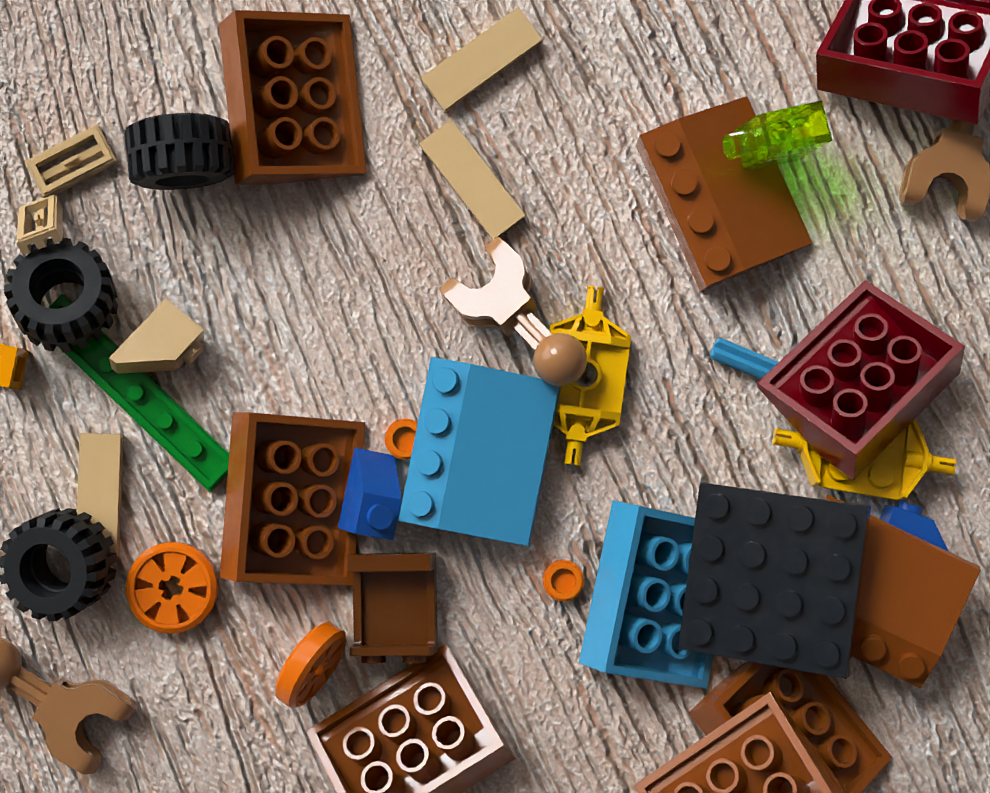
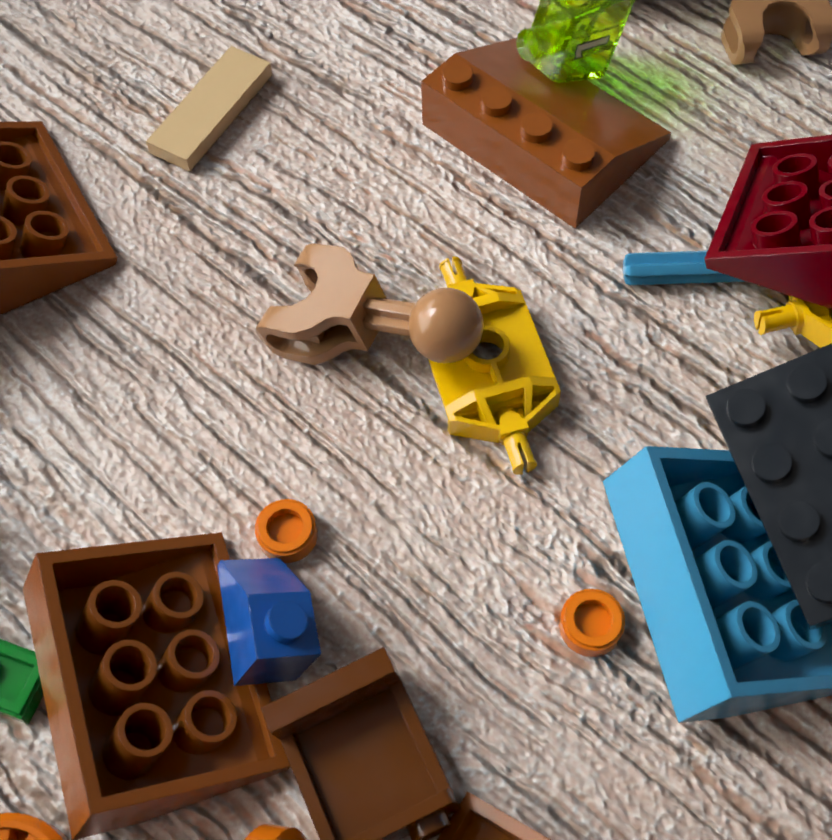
camera: 20 degrees left, 25 degrees down
(472, 180) = (248, 215): tan tile -> none
(479, 451) = (393, 495): dark azure slope -> none

